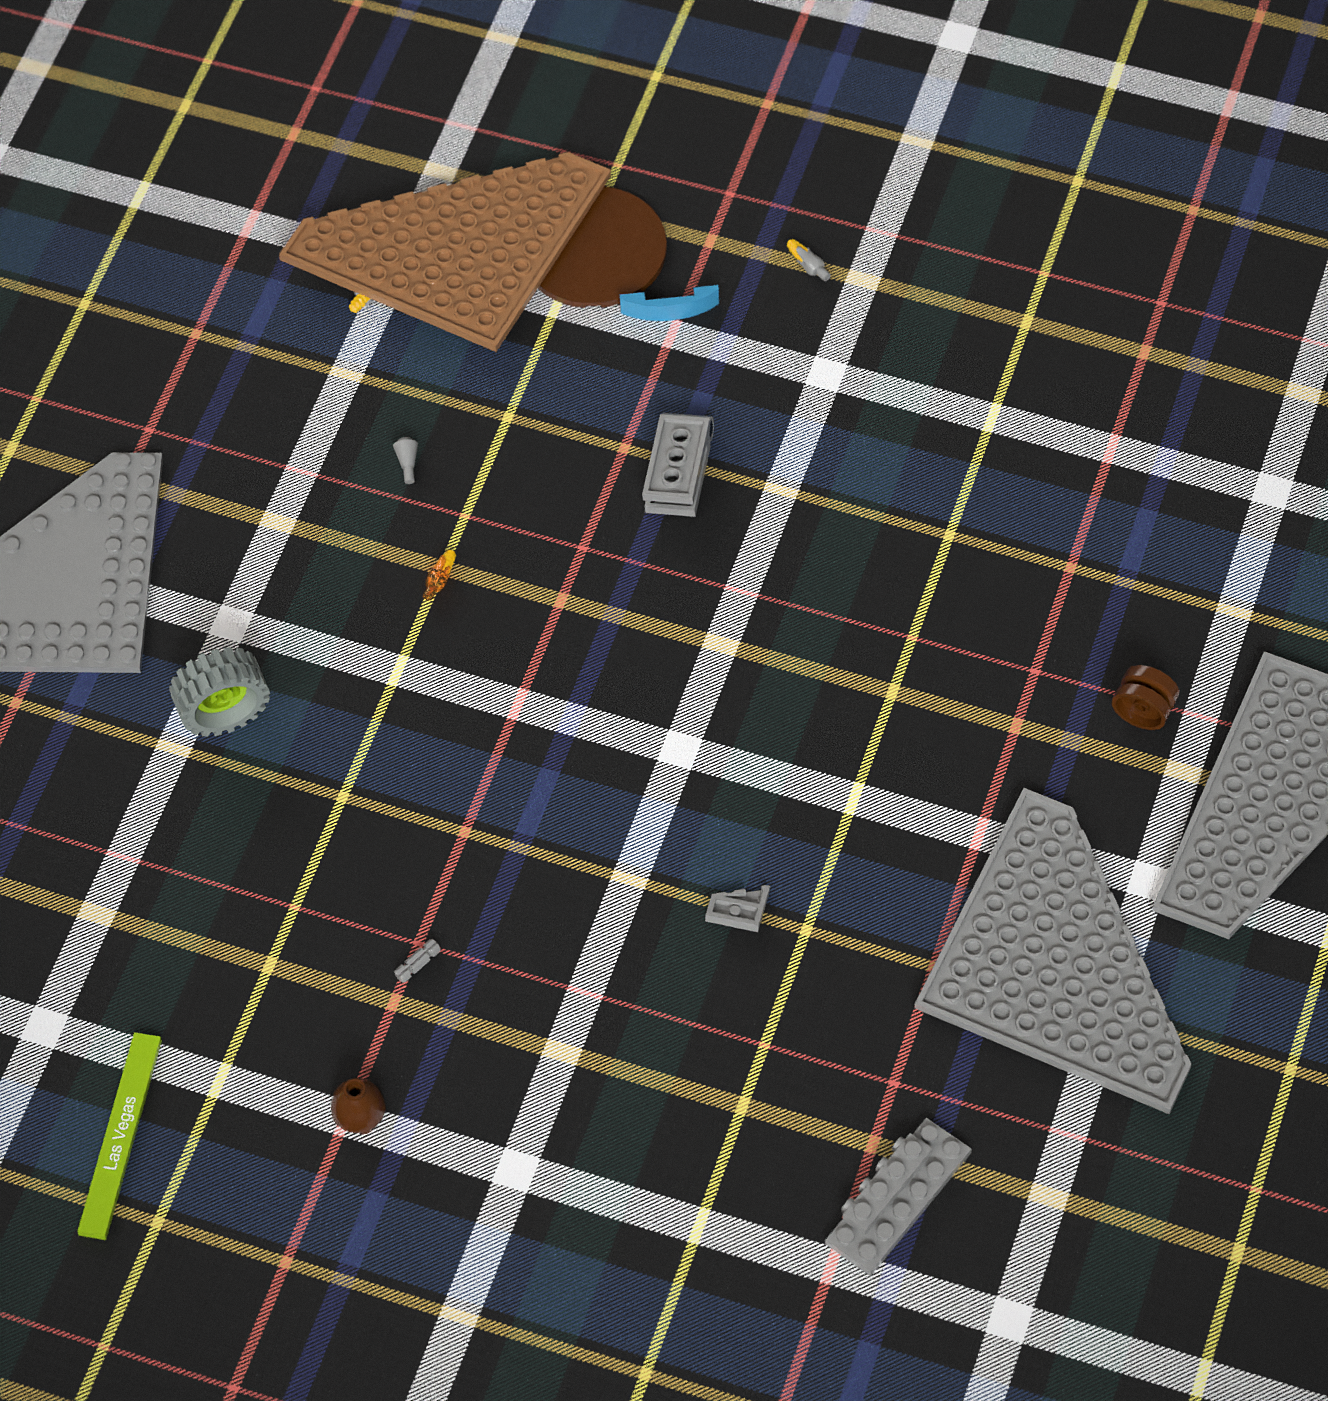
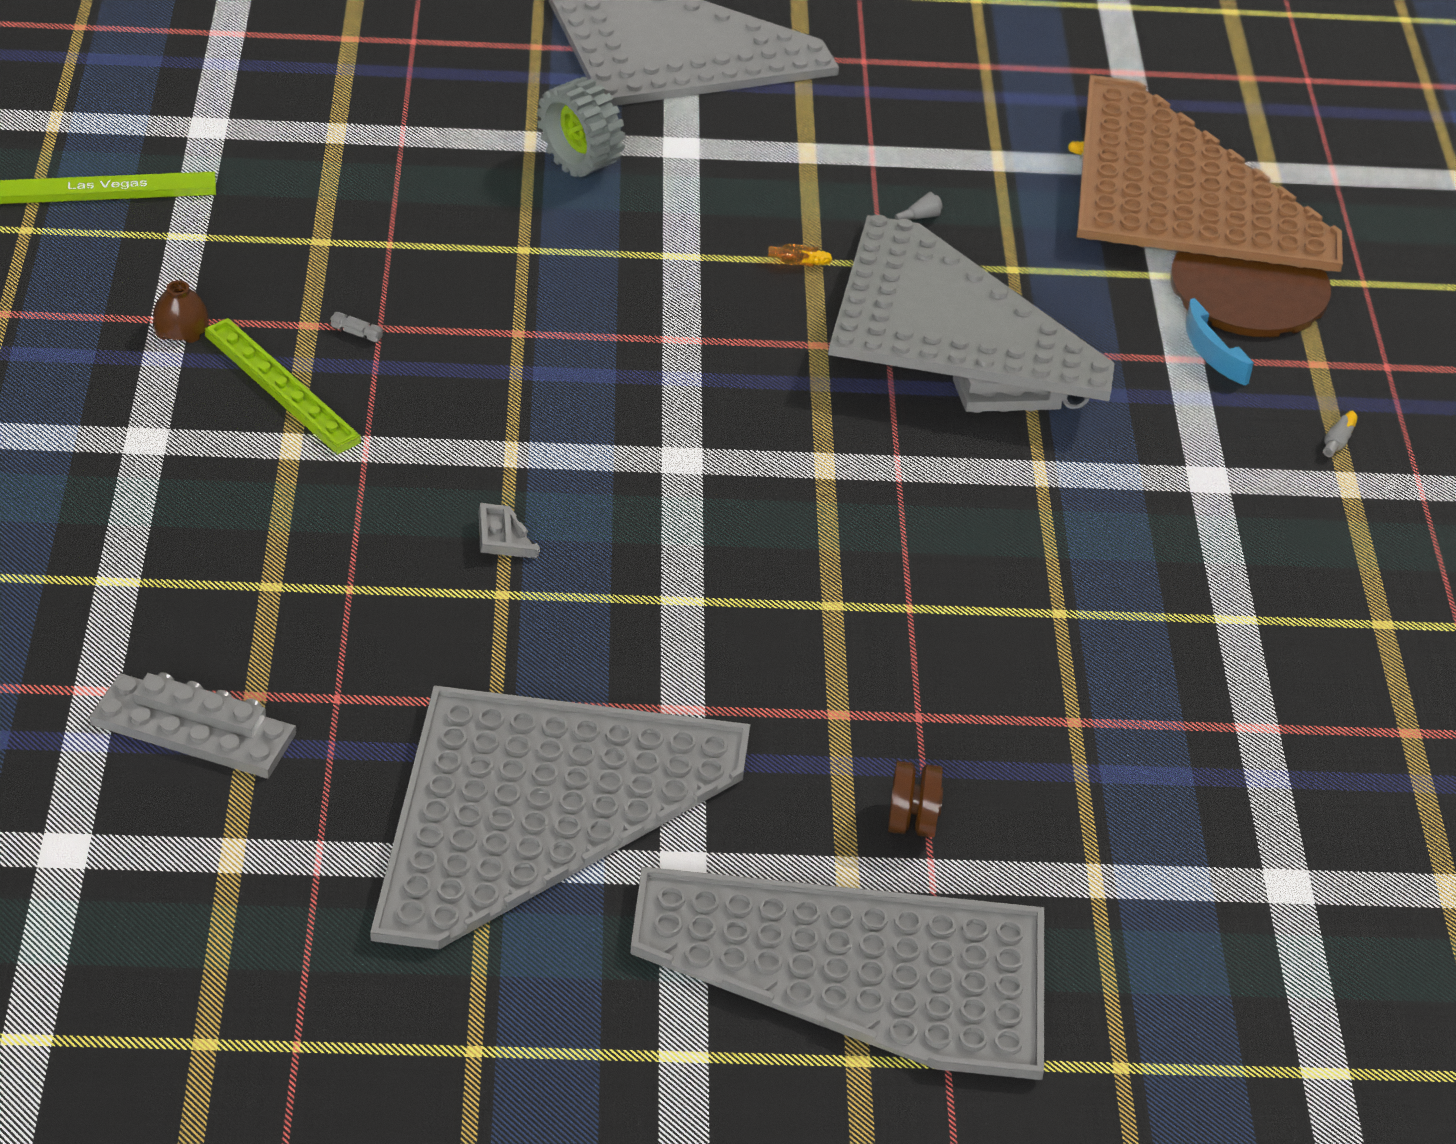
camera: 65 degrees right, 15 degrees down
(477, 1041) = (283, 386): none -> lime tile
(585, 490) = (938, 312): none -> light grey plate

